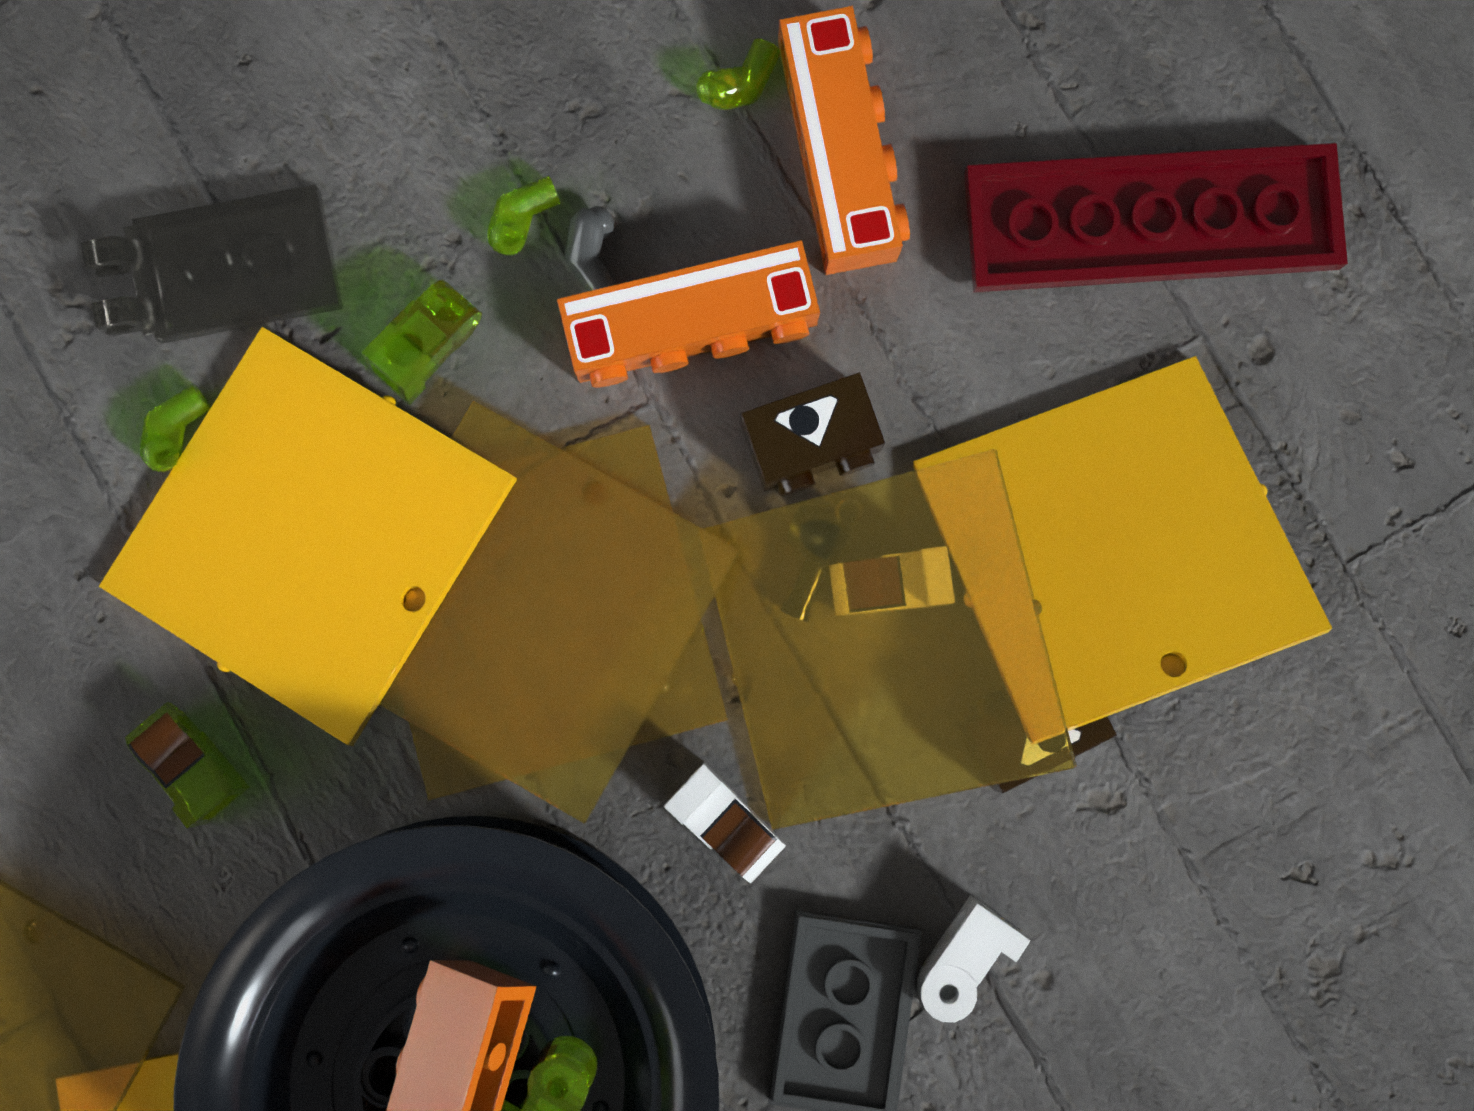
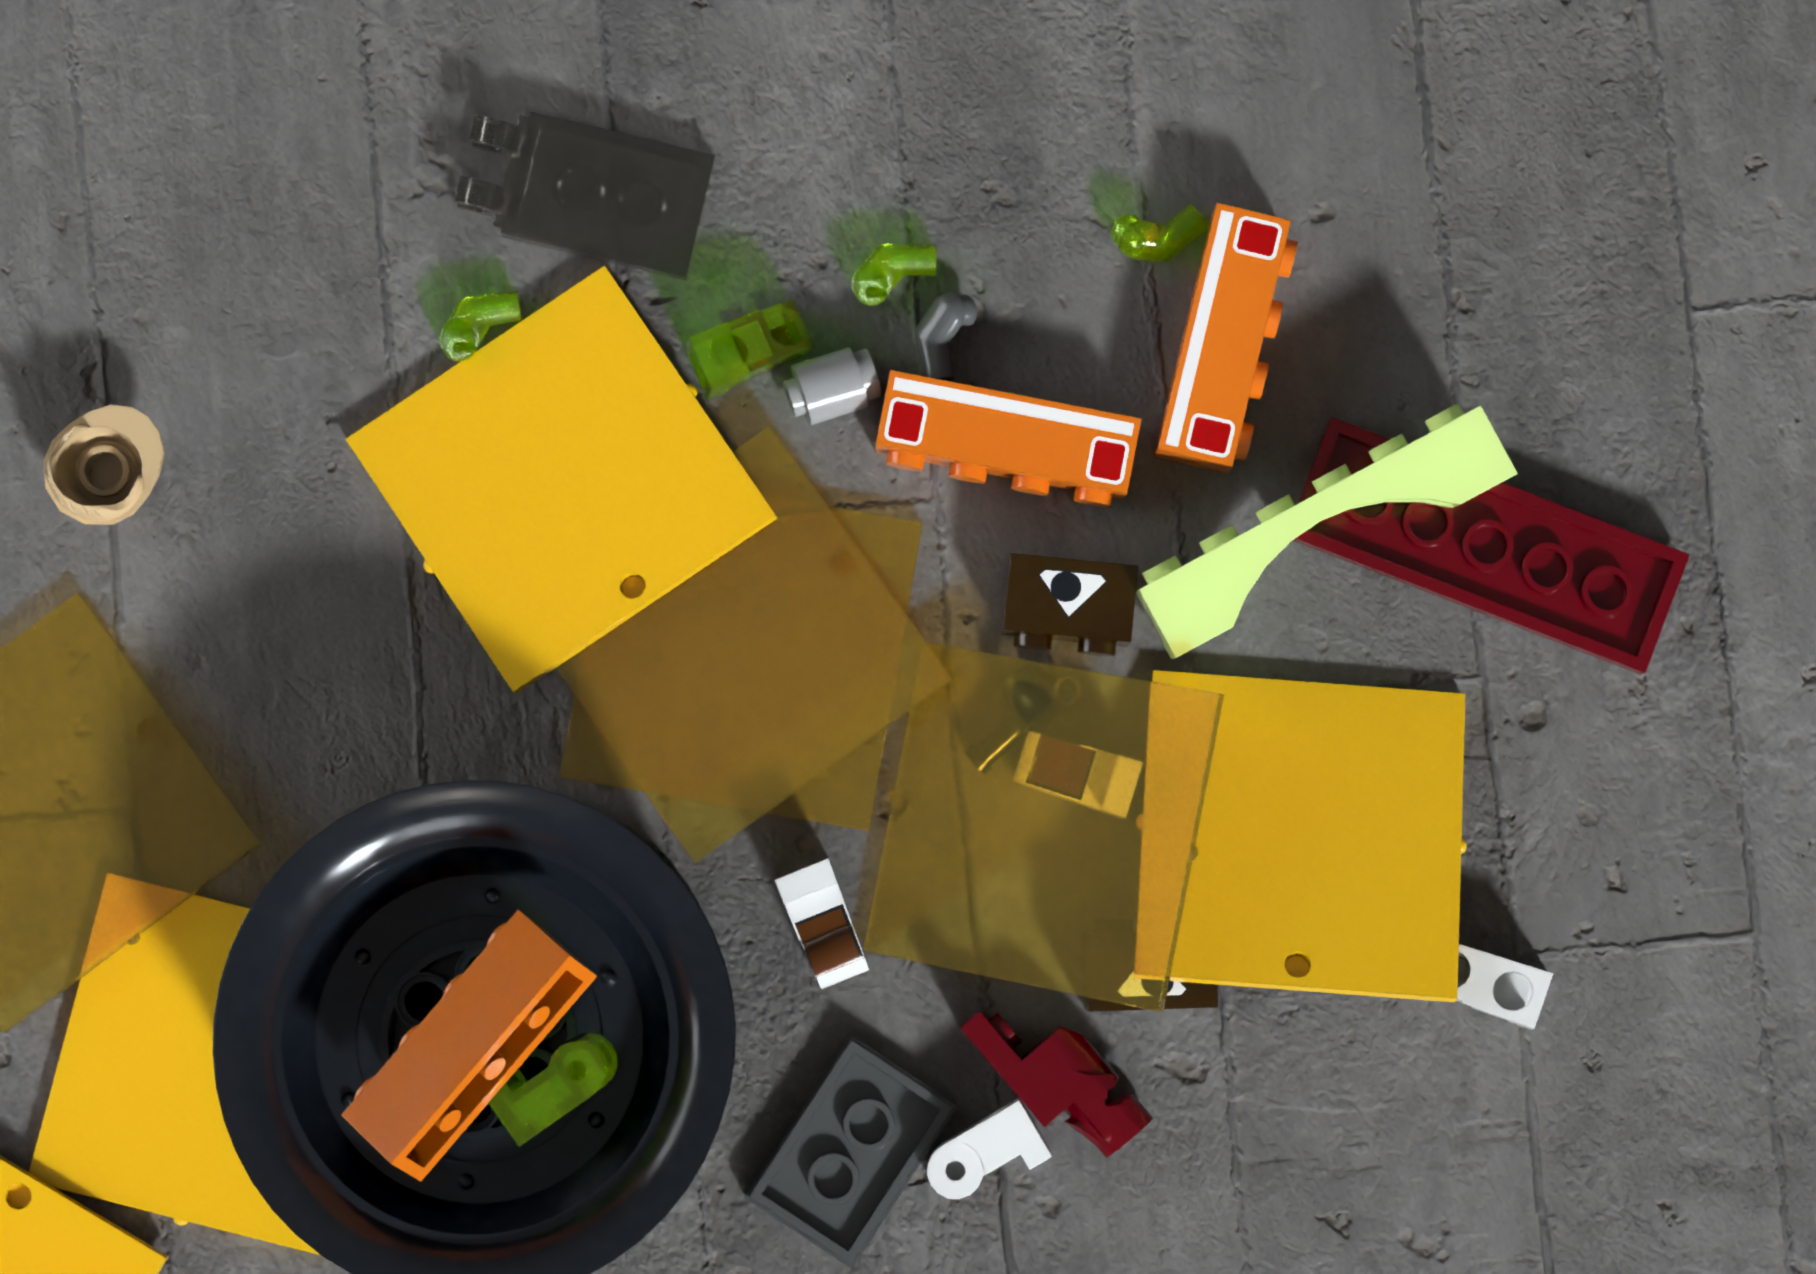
camera: 25 degrees right, 0 degrees up
(185, 765) = (353, 641): clear neon green leg -> none
(513, 339) = (832, 385): none -> light grey brick
(1001, 863) = (1061, 1076): none -> dark red plate
(1088, 164) = (1439, 469): none -> yellowish green arch
(1362, 597) = (1501, 986): none -> white leg

